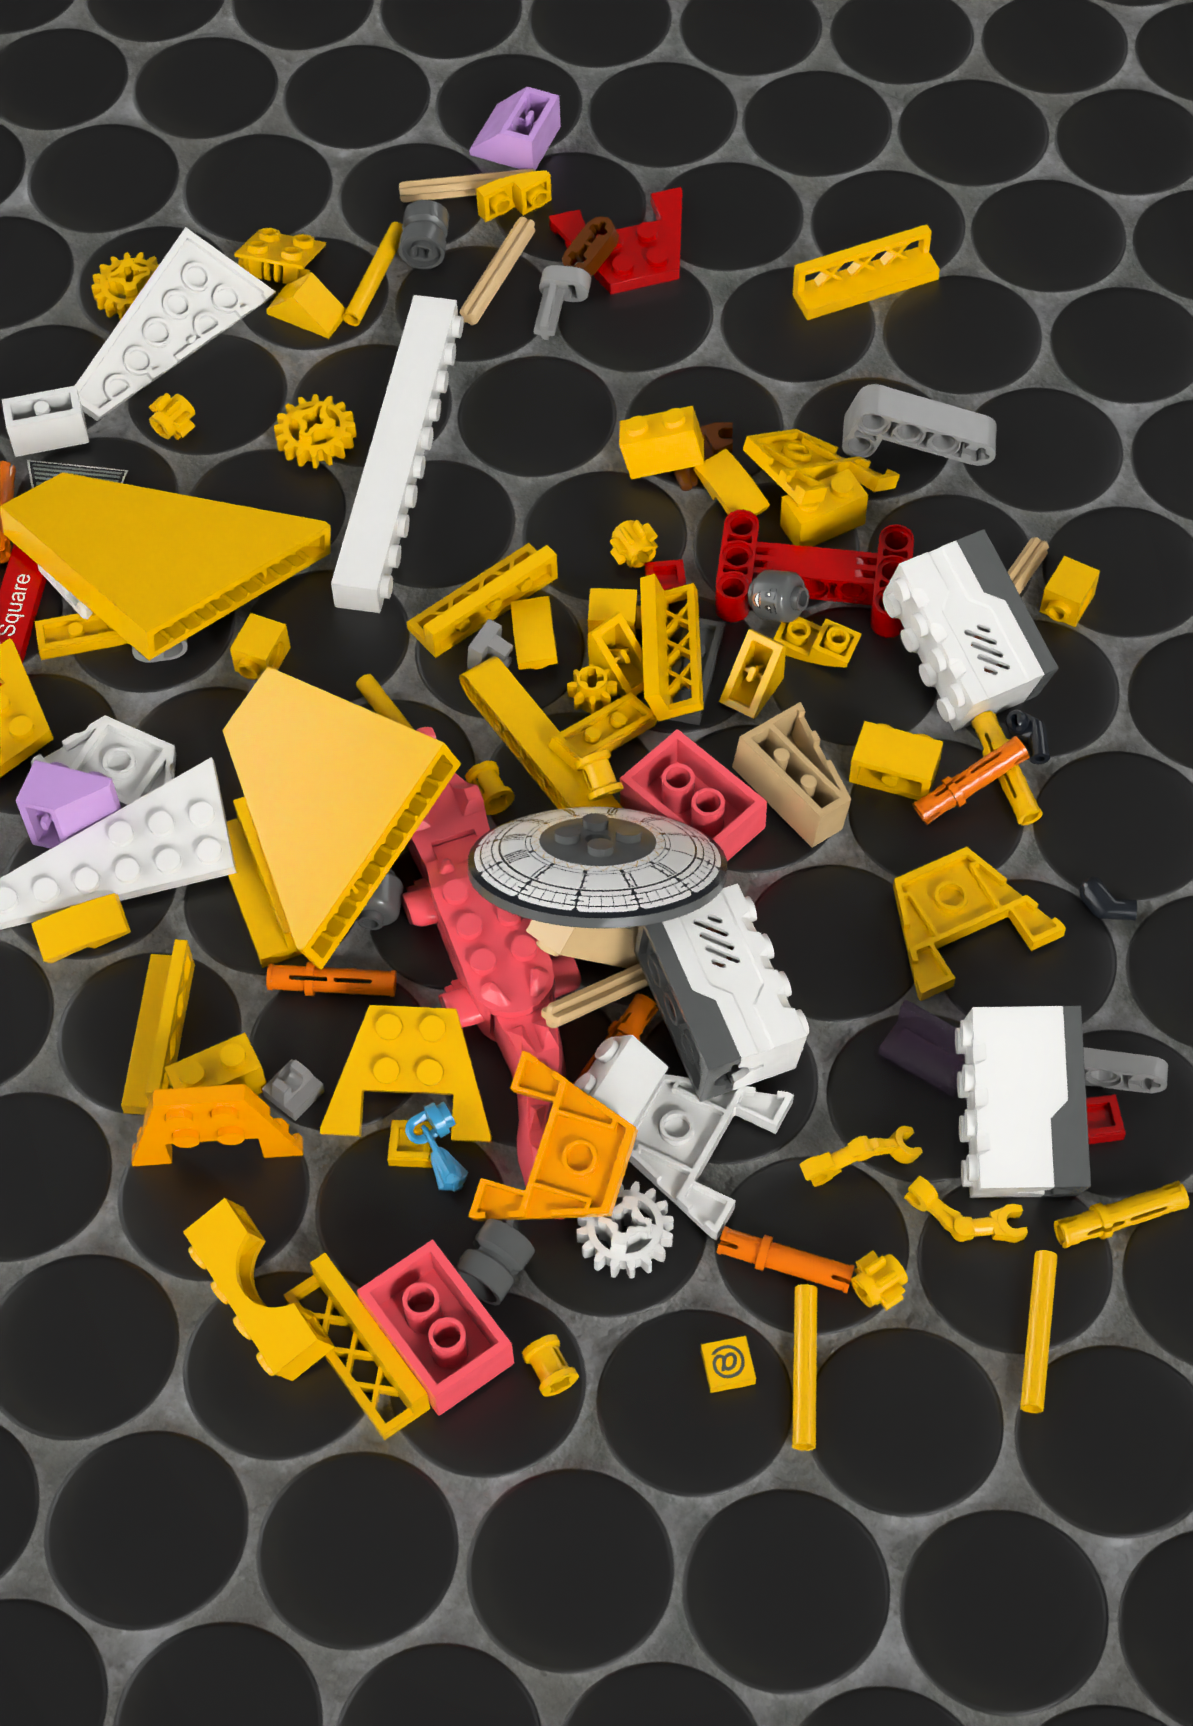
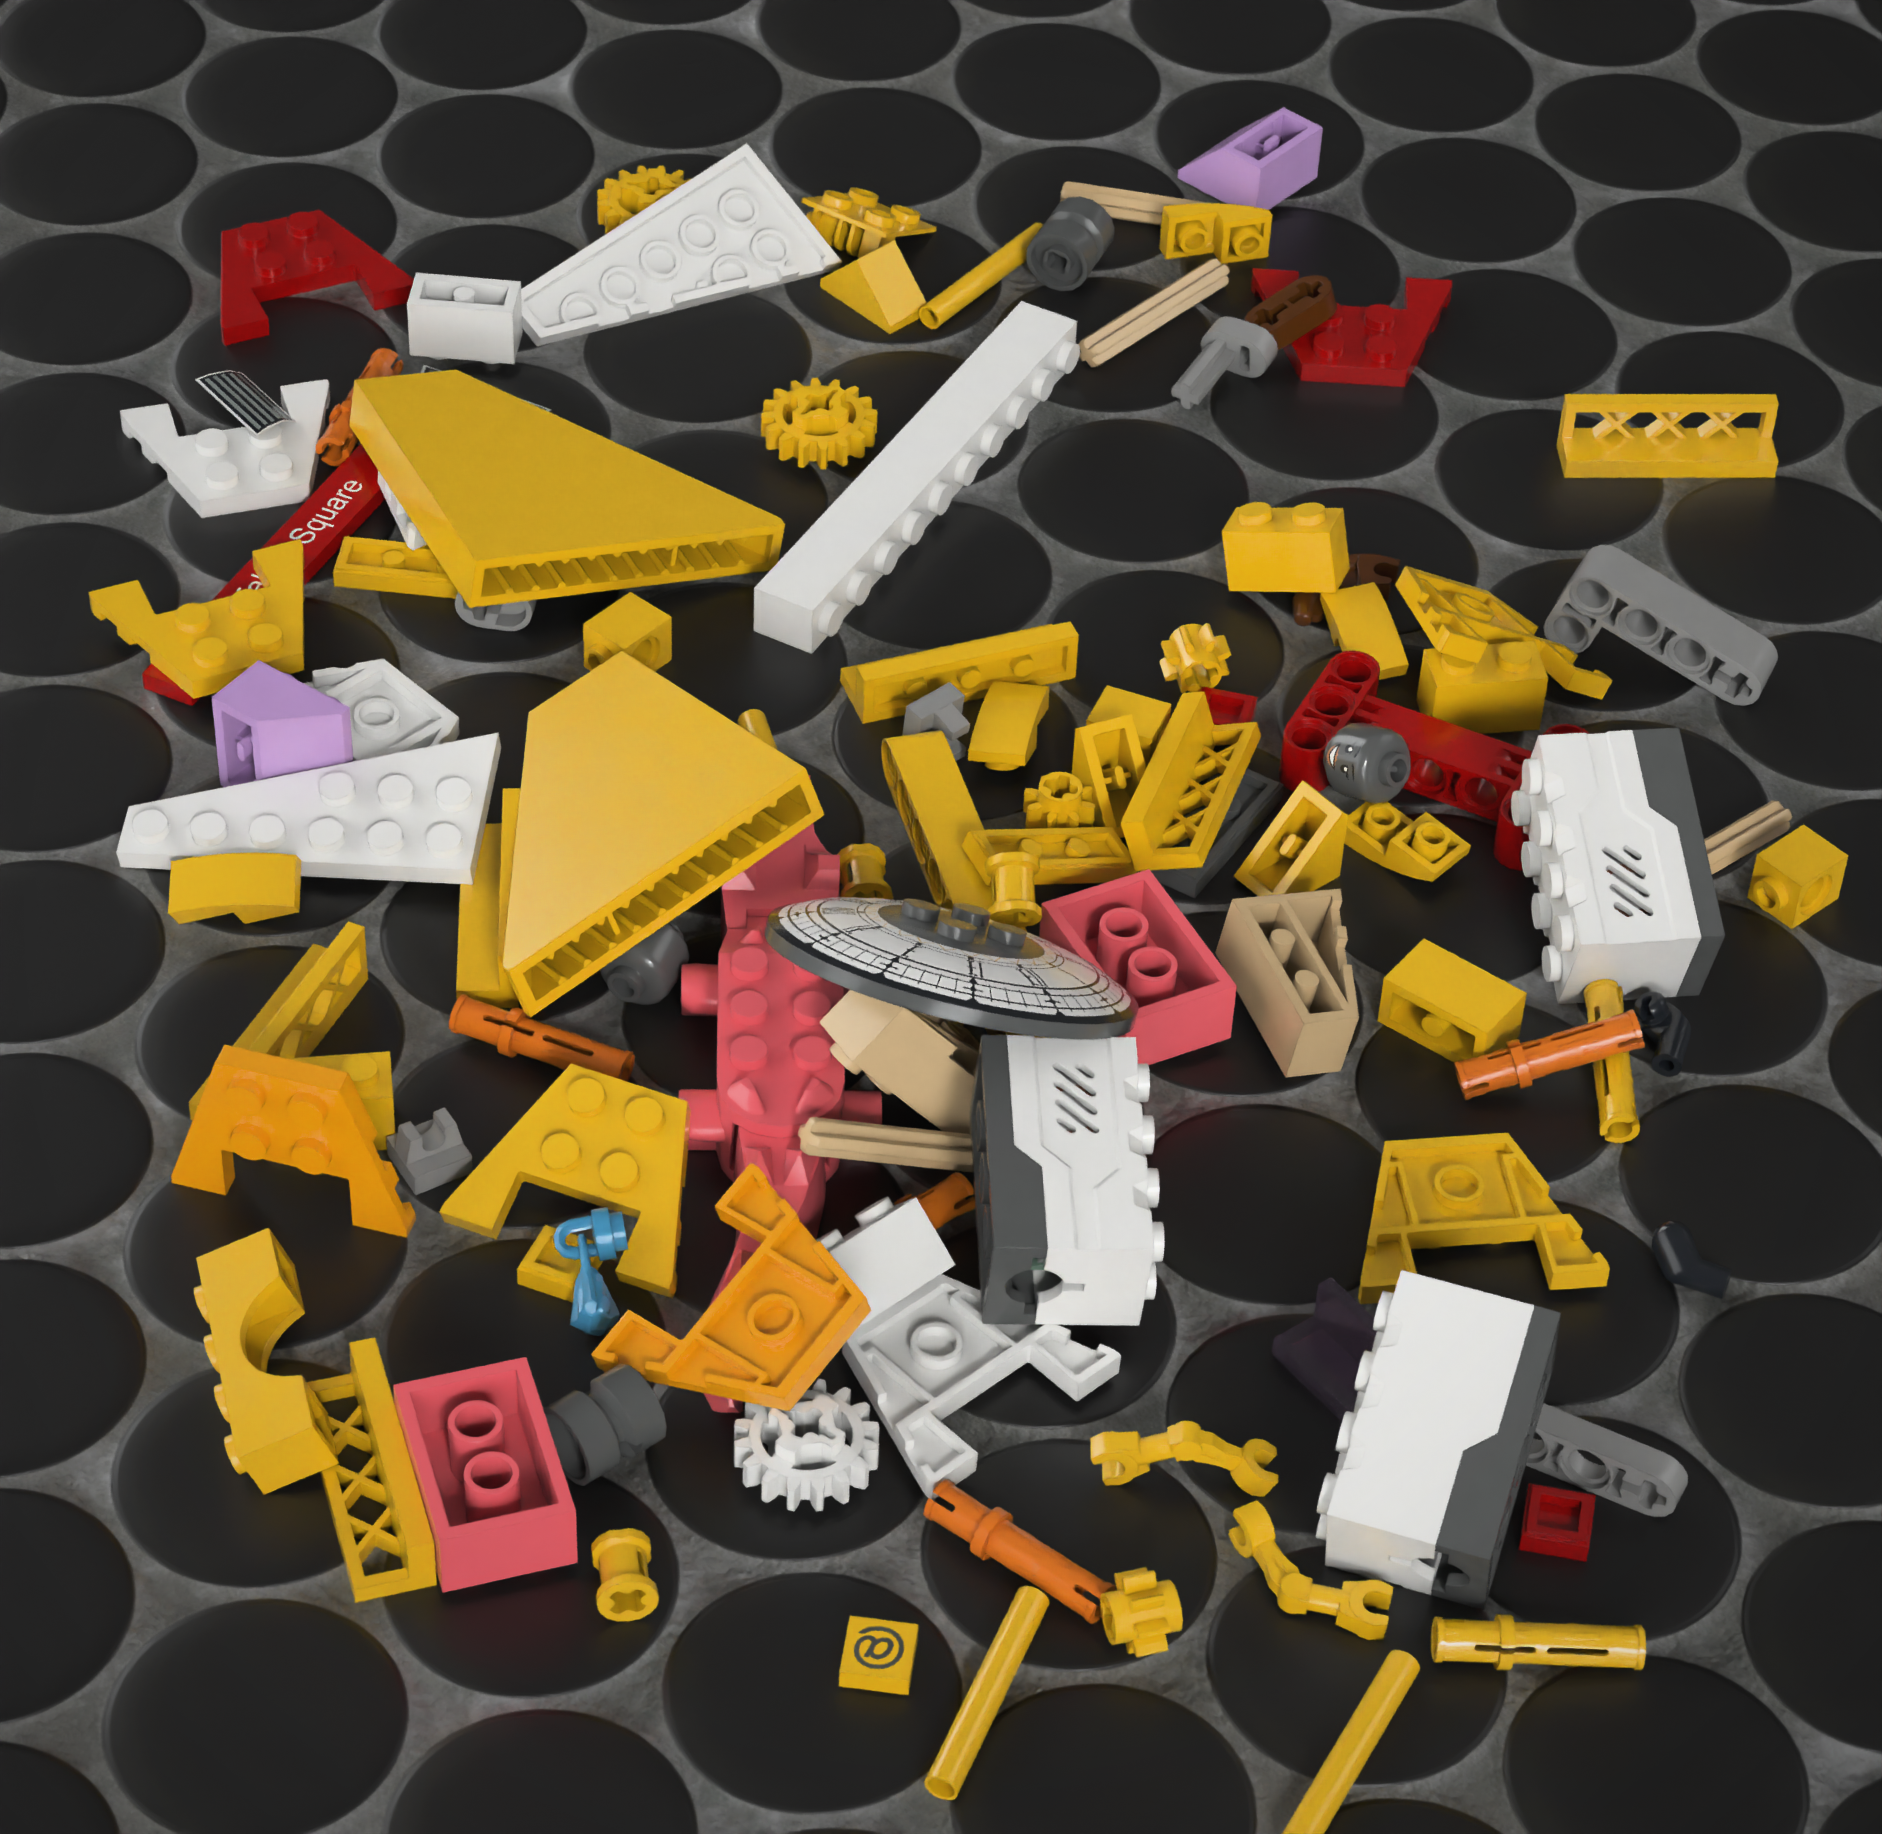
camera: 15 degrees right, 15 degrees down
(172, 416) = (635, 358): yellow gear -> none

